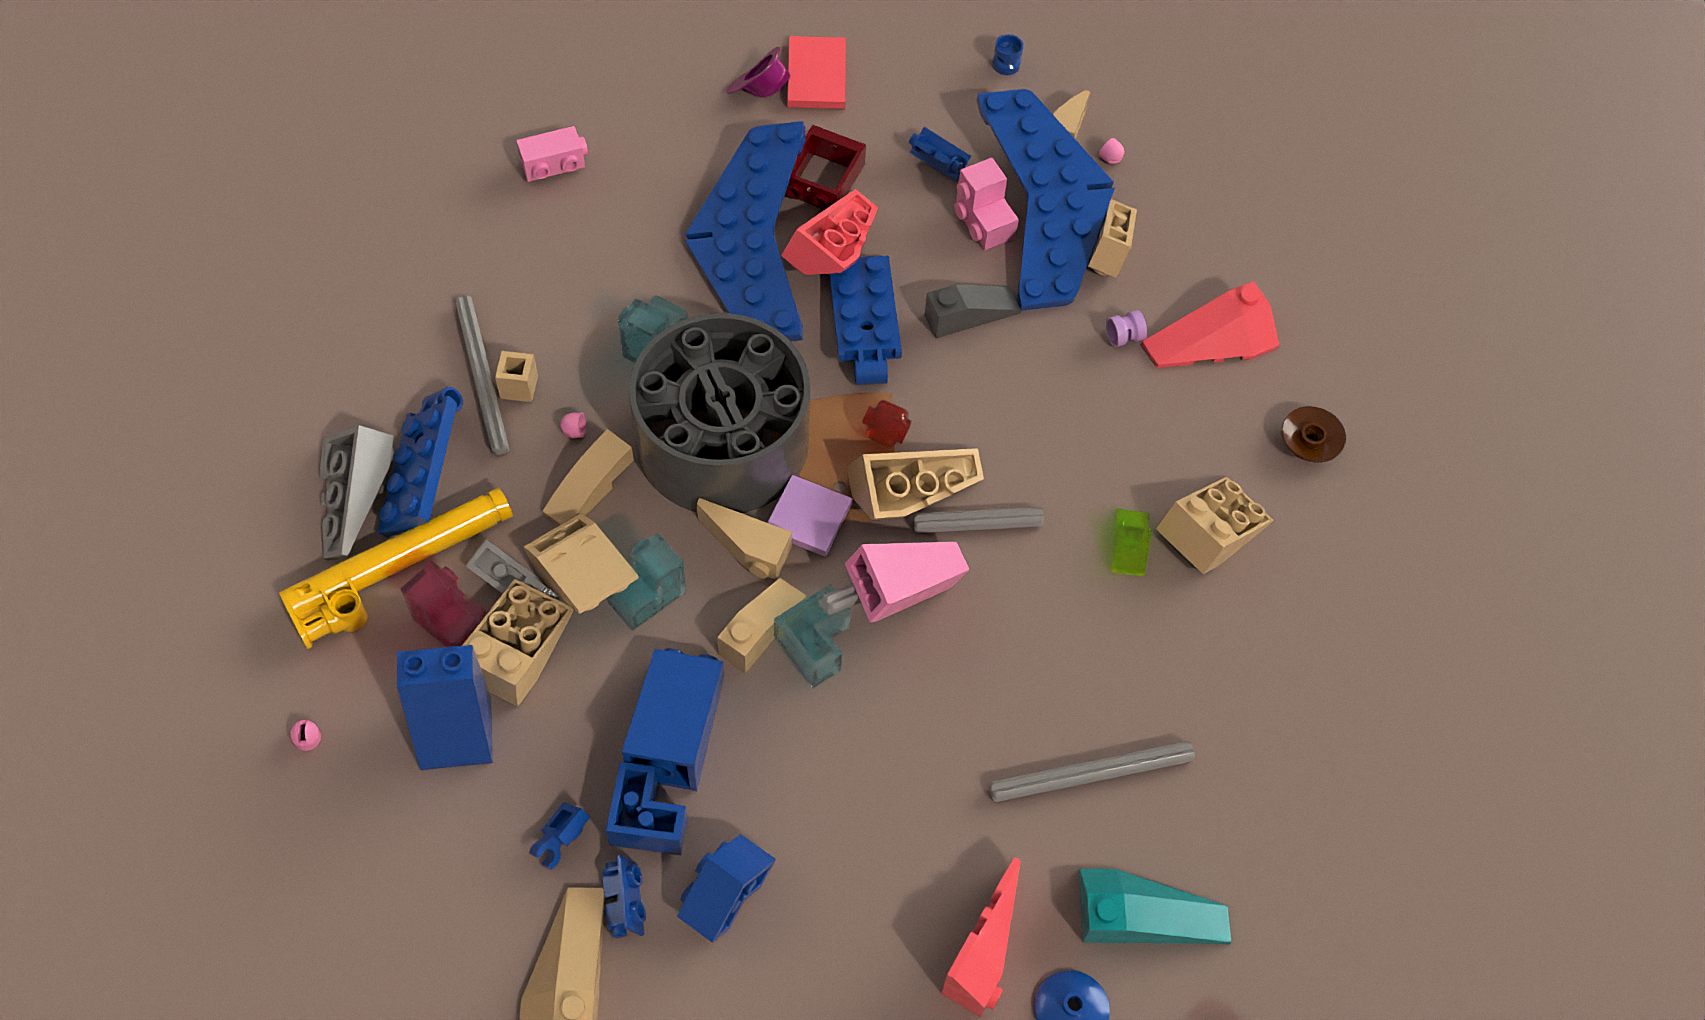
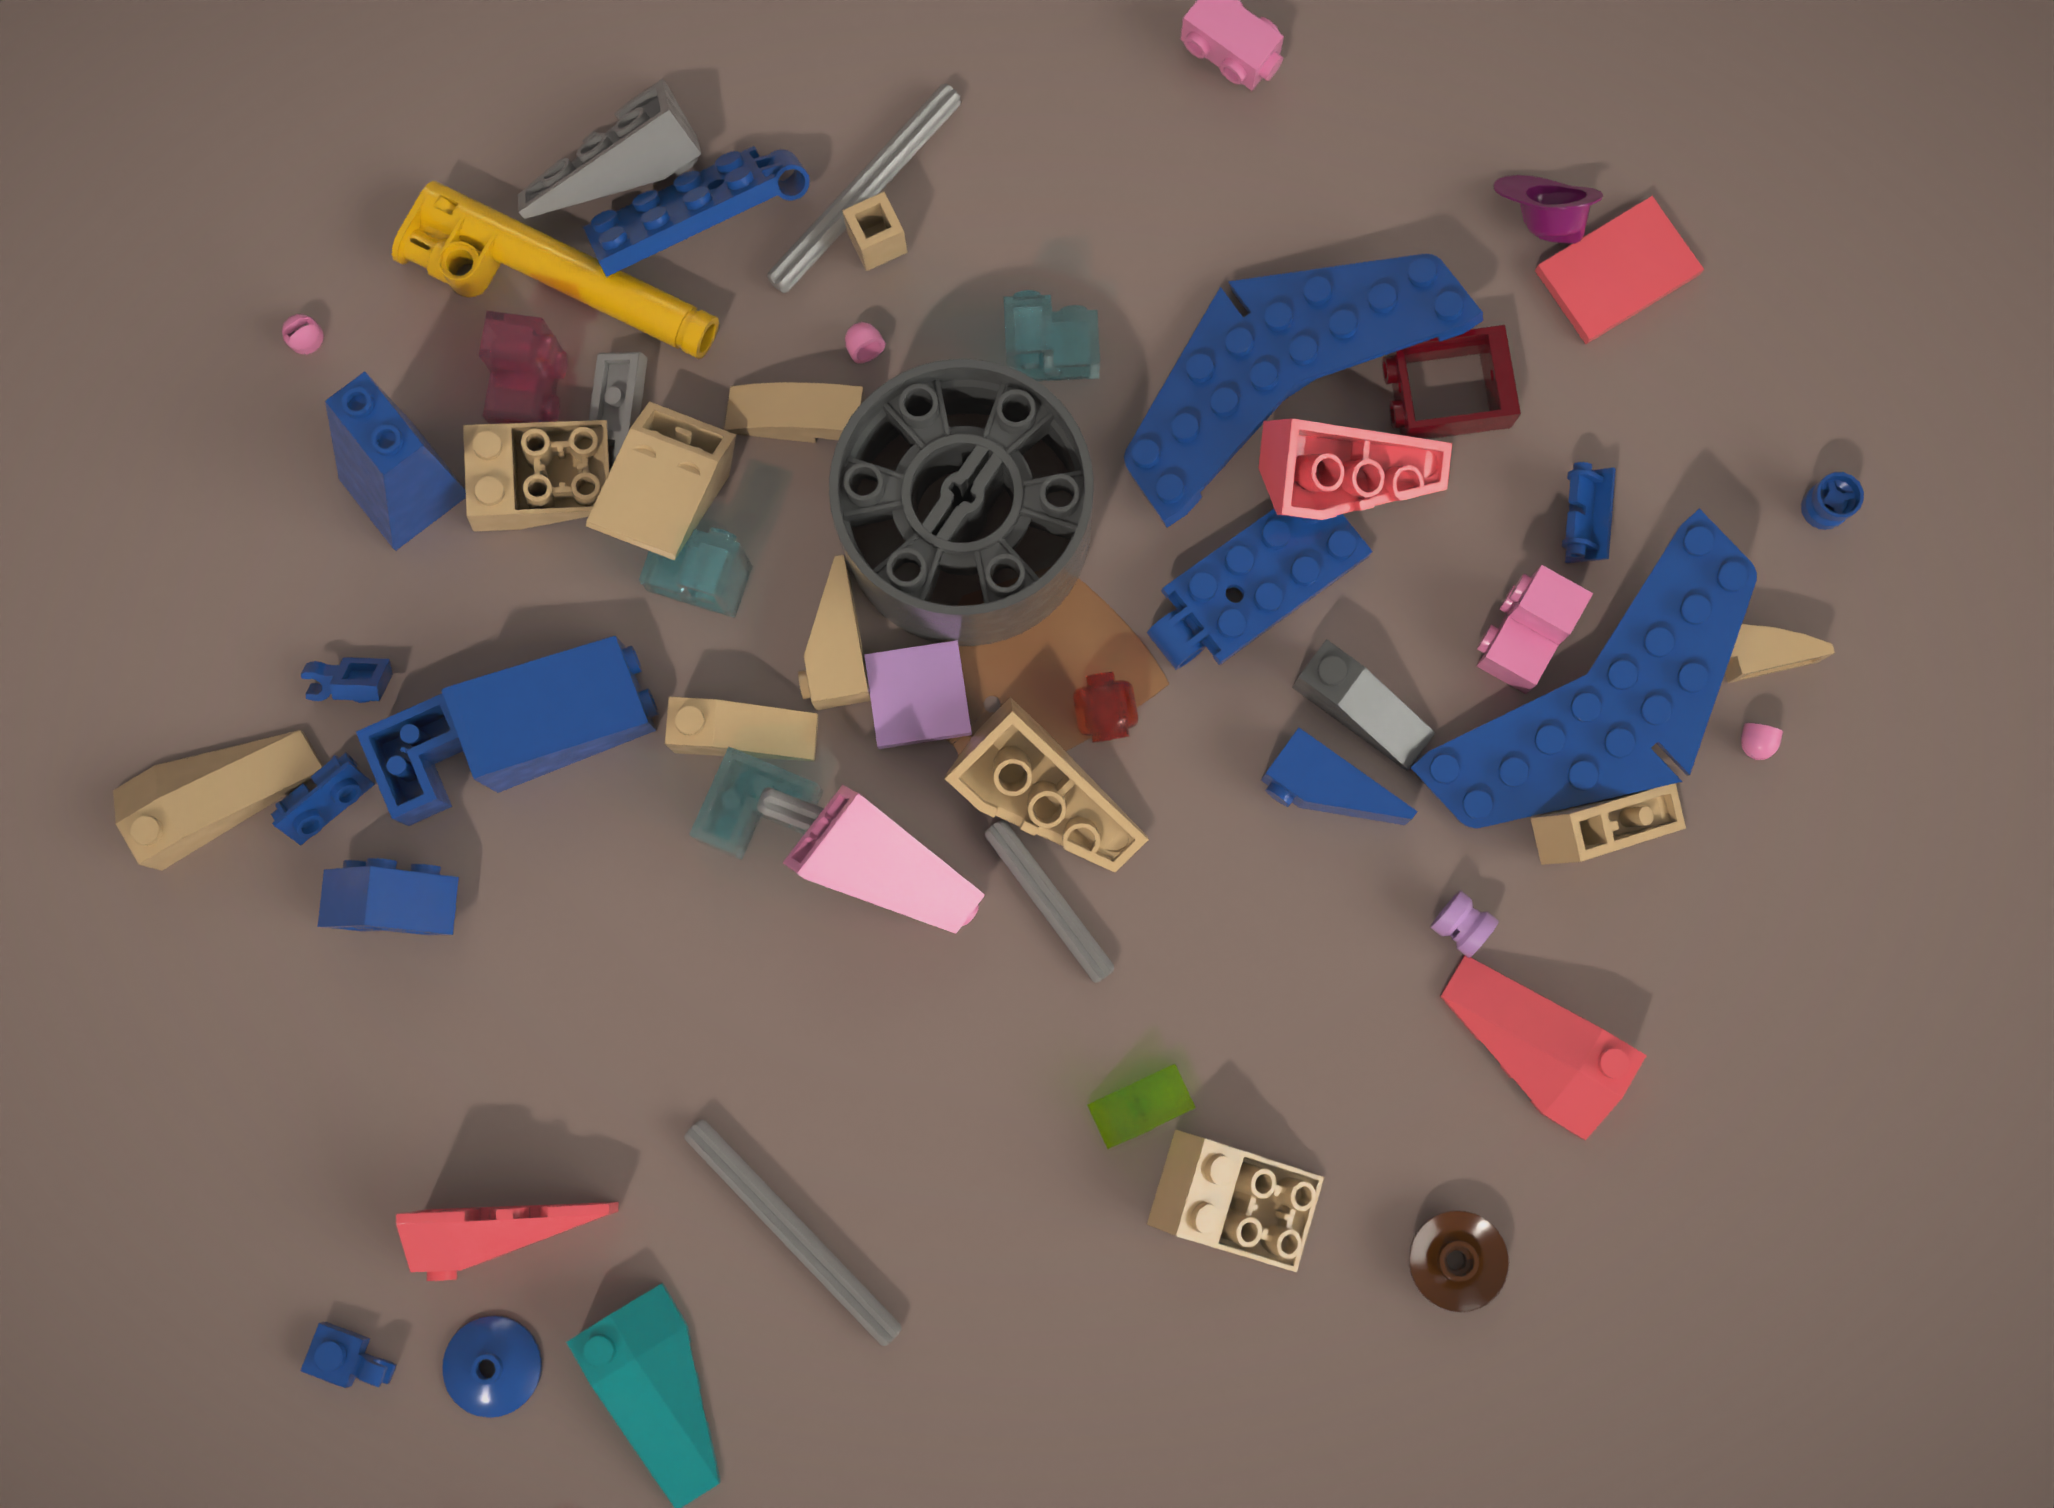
camera: 65 degrees right, 20 degrees up
(1003, 346) = (1325, 782): none -> blue slope

